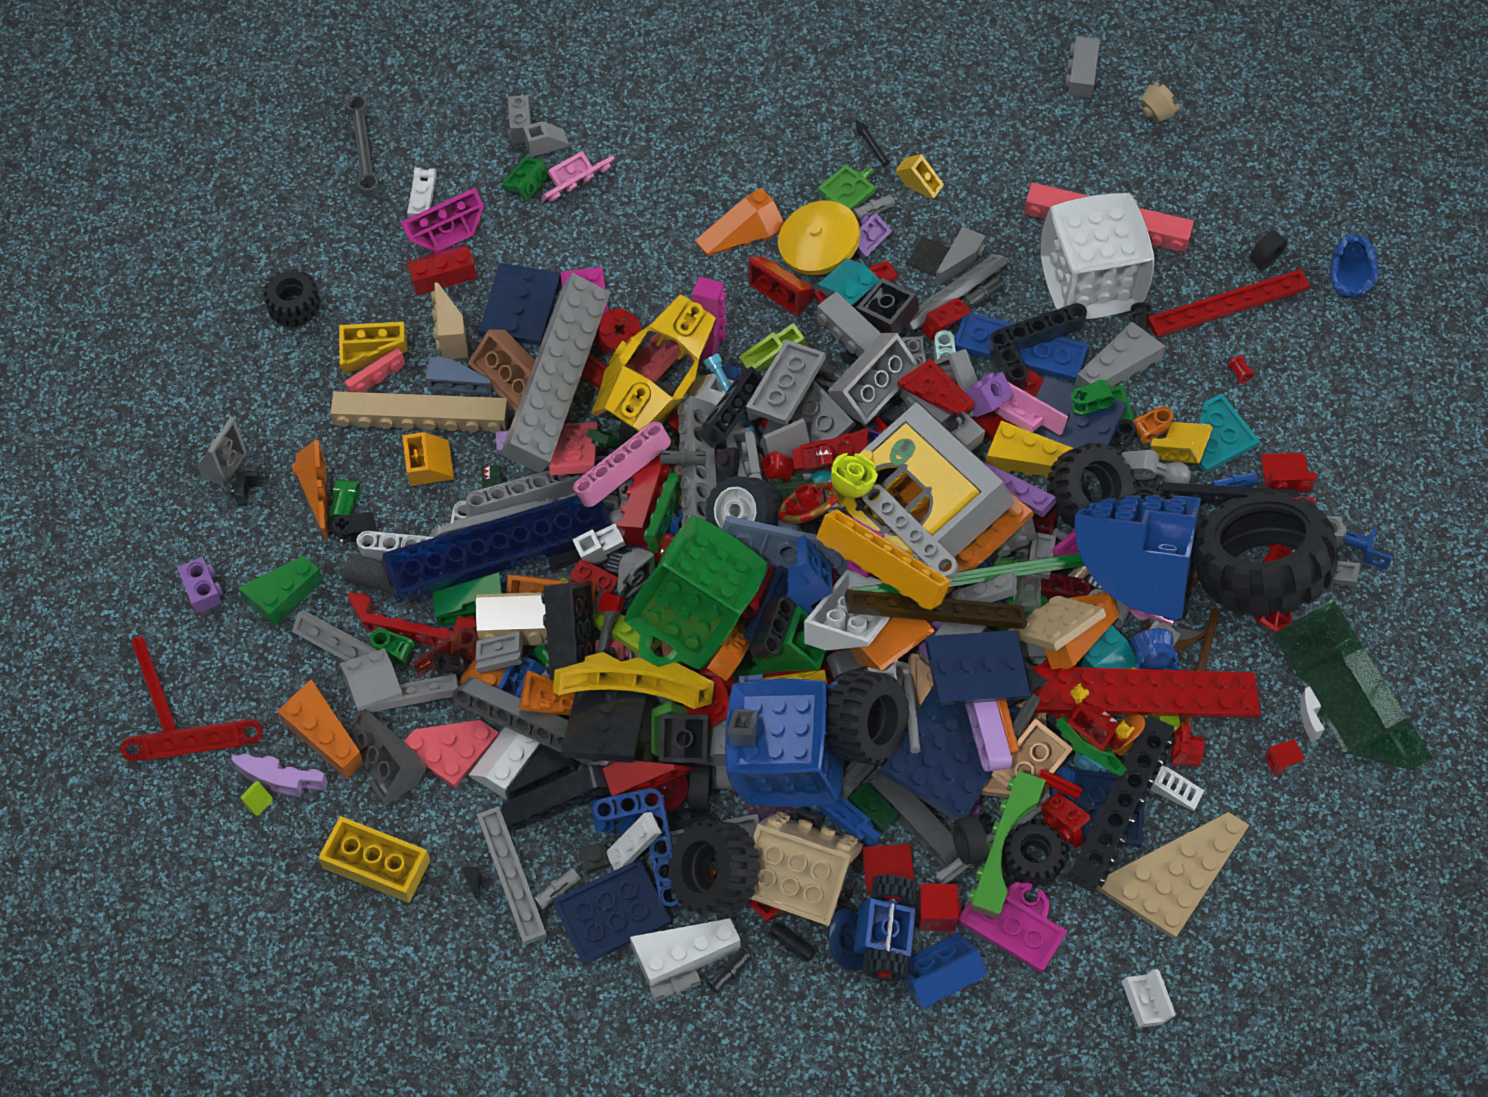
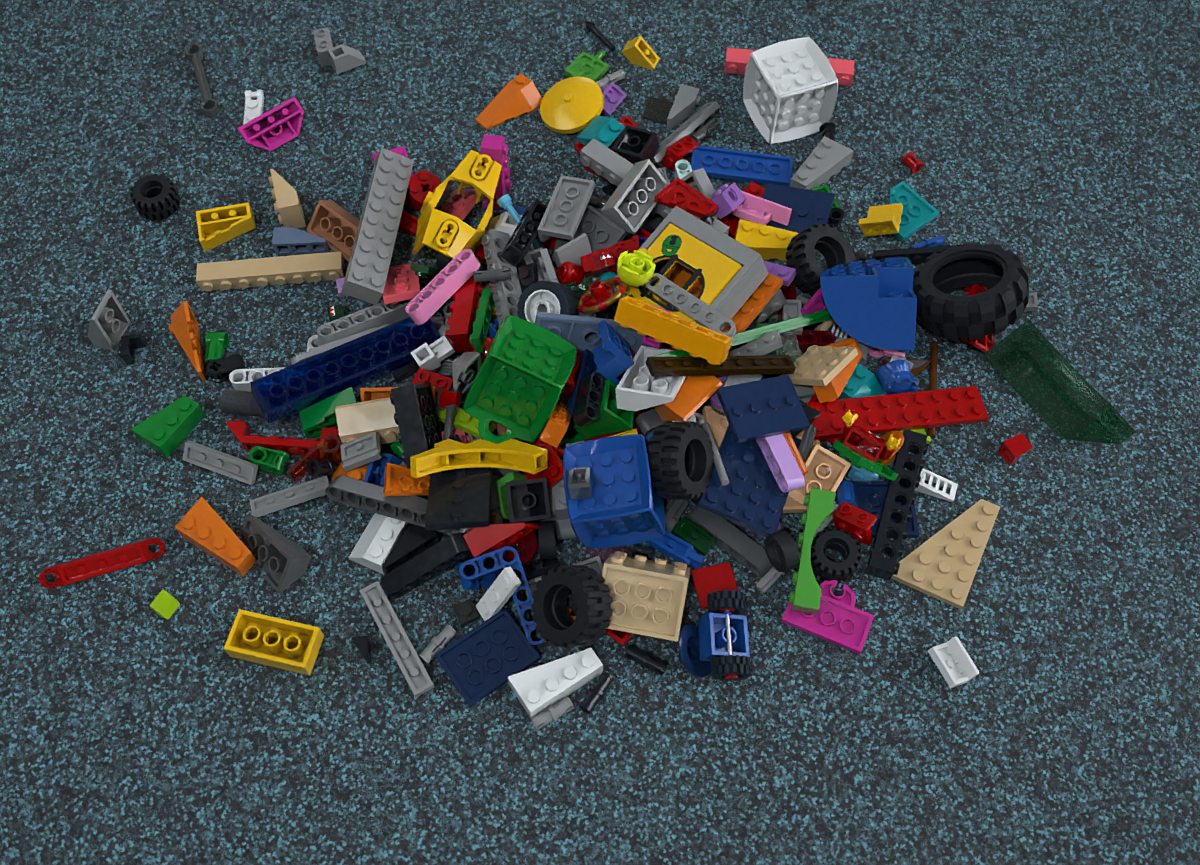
camera: 10 degrees left, 0 degrees up
(153, 684) = (65, 520): red axle -> none
(198, 585) = (96, 433): medium lavender brick -> none
(275, 778) = (177, 583): lavender slope -> none
(370, 679) = (254, 489): light grey slope -> none
(376, 372) = (231, 245): coral plate -> none
(427, 458) = (281, 306): light orange slope -> none
(442, 267) = (282, 160): red slope -> none
(452, 748) = (331, 538): coral plate -> none
(521, 302) = (343, 179): dark blue plate -> none
(526, 178) = (336, 88): green bracket -> none
(571, 172) = (372, 79): bright pink bracket -> none
(765, 351) = (545, 190): lime slope -> none
(779, 285) = (546, 143): red slope -> none
(938, 907) = (764, 611): red head -> none
(943, 970) = (778, 664): blue slope -> none
(1010, 343) = (732, 162): black beam -> none
(1060, 784) = (845, 494): red axle -> none
(1093, 396) = (809, 192): green piece -> none
(1146, 466) = (860, 240): light grey beam -> none
(1149, 425) = (856, 209): orange piece -> none
(1186, 749) = (938, 452): red piece -> none
(1228, 303) = (891, 117): red plate -> none
(1268, 249) = (914, 74): black tyre -> none
(1287, 472) = (965, 231): red bracket -> none
(1309, 708) = (1024, 407): white slope -> none
(1353, 266) = (980, 81): blue hair -> none
(1366, 543) = (1038, 278): blue bracket -> none

